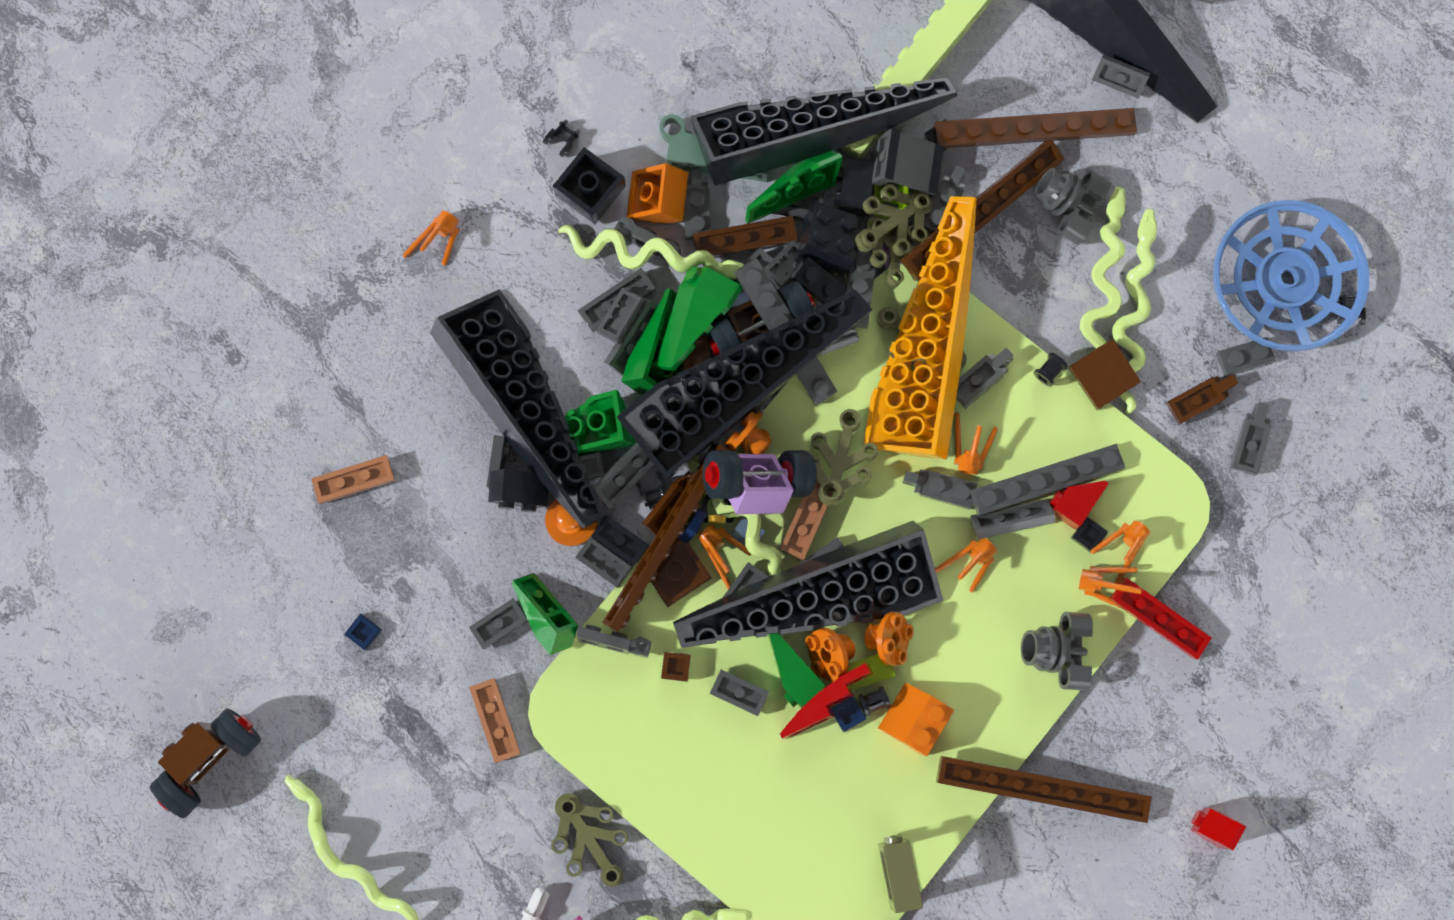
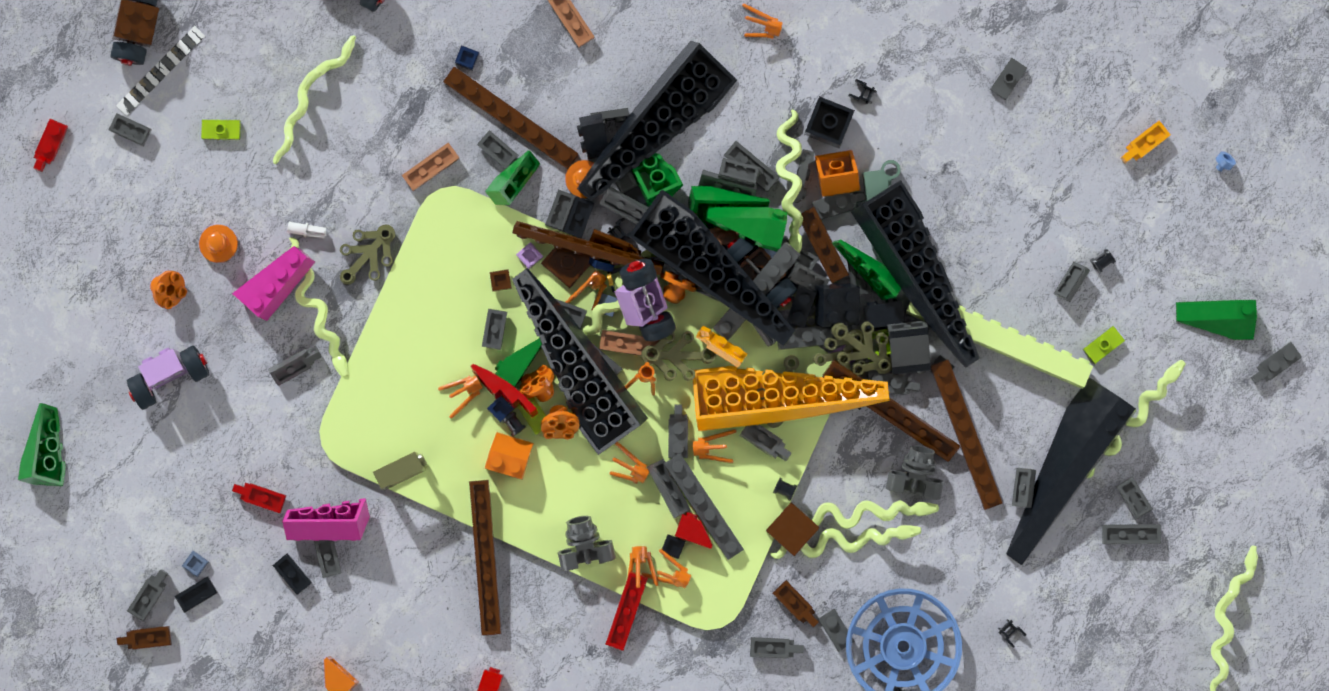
camera: 75 degrees right, 5 degrees up
(460, 596) = (510, 117): none -> reddish brown plate
(616, 641) = (507, 251): dark grey hinge -> none
(652, 619) = (529, 255): none -> lavender tile
(807, 744) = (471, 385): none -> orange plant
(844, 399) = (721, 346): none -> light orange hinge
(857, 505) = (645, 375): none -> orange plant
(1305, 149) = (1001, 630): none -> black piece

